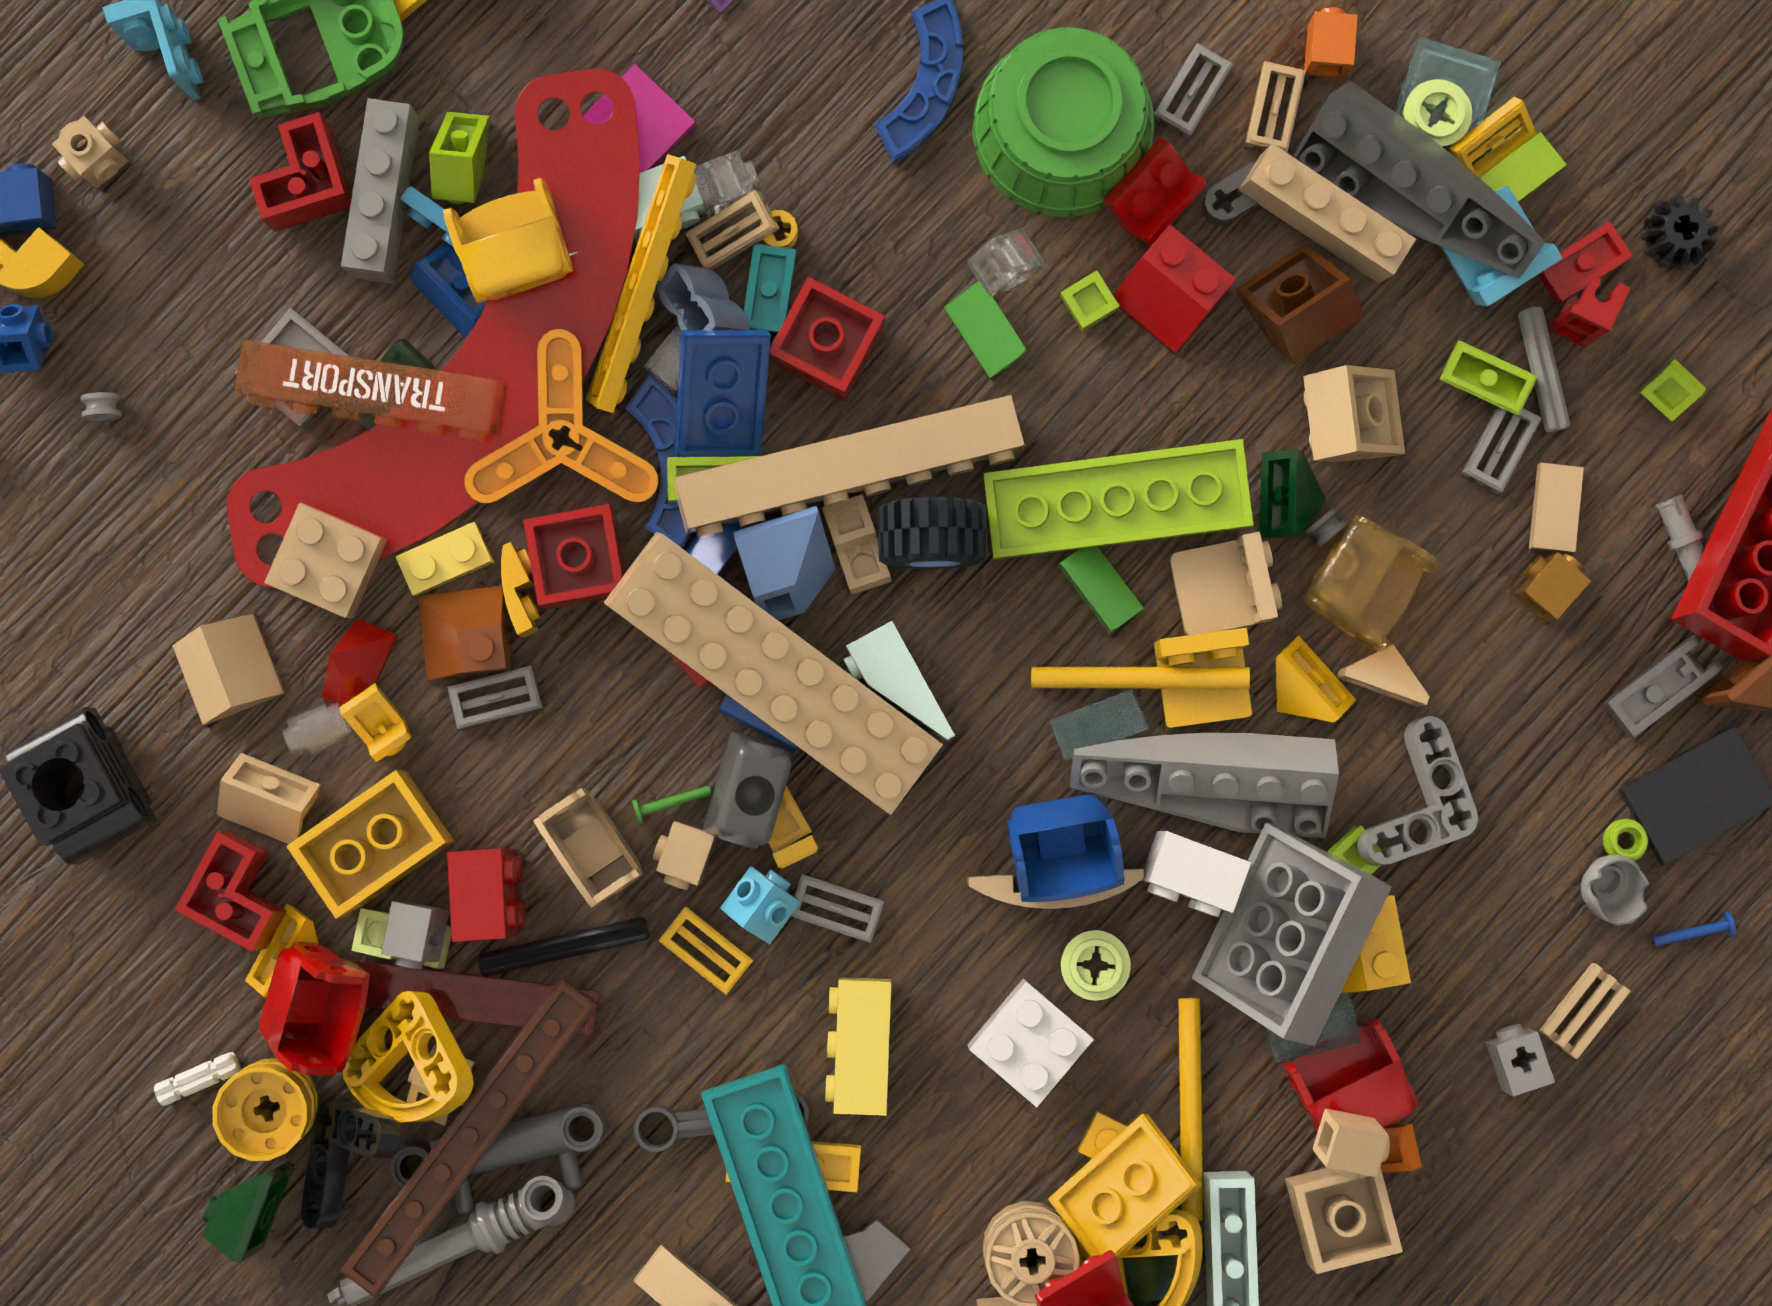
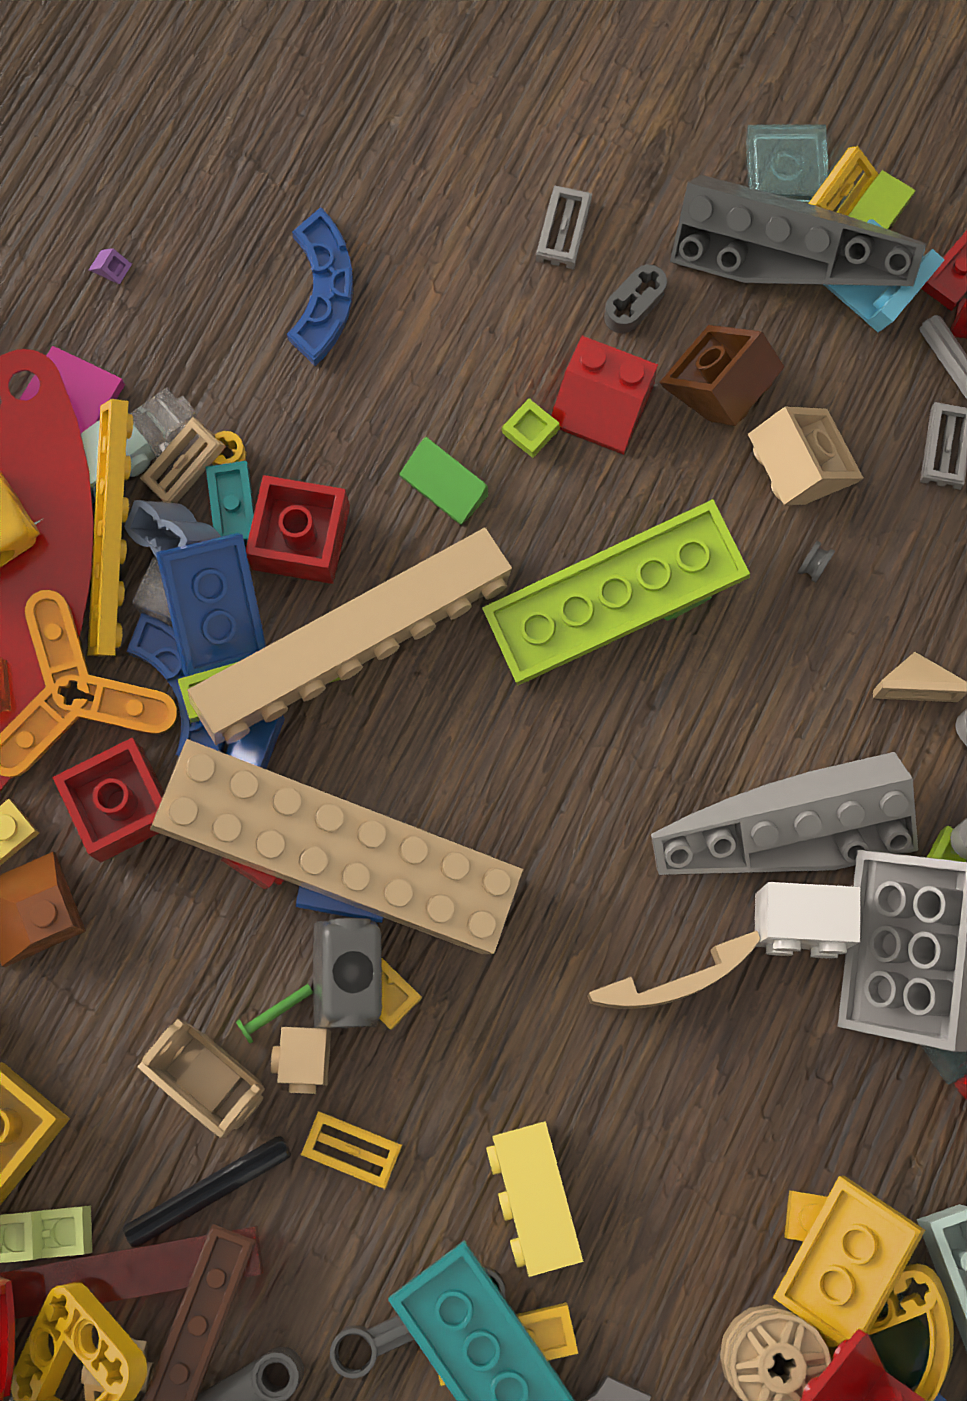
camera: 15 degrees left, 10 degrees down
(415, 933) = (50, 1224): light grey brick -> none
(485, 894) = (110, 1159): red brick -> none
(516, 578) = (63, 843): yellow slope -> none
(531, 689) = (106, 943): light grey tile -> none
(761, 903) = (392, 1083): medium azure brick -> none
(786, 561) = (319, 740): medium blue slope -> none
(796, 852) = (412, 1021): yellow tile -> none
(856, 544) = (383, 710): tan slope -> none
(872, 919) = (430, 1066): light grey tile -> none
(892, 673) = (449, 813): light aqua slope -> none
(932, 533) = (451, 672): black wheel -> none
(1005, 262) = (442, 414): clear brick -> none
(1030, 1042) = (703, 1140): white brick -> none
(1062, 121) = (457, 280): bright green piece -> none
(1065, 849) = (674, 934): blue piece -> none
(1100, 587) = (625, 681): bright green slope -> none
(1100, 723) = (667, 804): clear light blue slope -> none
(1108, 981) = (758, 1055): yellowish green gear -> none
(1141, 677) = (691, 750): yellow piece -> none
(1154, 192) = (557, 317): red bracket -> none
(1191, 1098) = (877, 1142): yellow piece -> none
(1209, 649) = (749, 731): yellow bracket -> none
(1225, 585) = (742, 642): tan bracket -> none
(1282, 72) = (643, 249): tan tile -> none
(1288, 494) = (769, 544): dark green slope -> none
(1308, 686) = (849, 712): yellow slope -> none
(1327, 214) = (720, 289): tan brick -> none
(1330, 43) = (672, 151): orange brick -> none
(1368, 581) = (873, 598): clear yellow piece -> none
(1456, 111) = (803, 174): yellowish green gear -> none
(1488, 377) = (914, 387): lime slope -> none

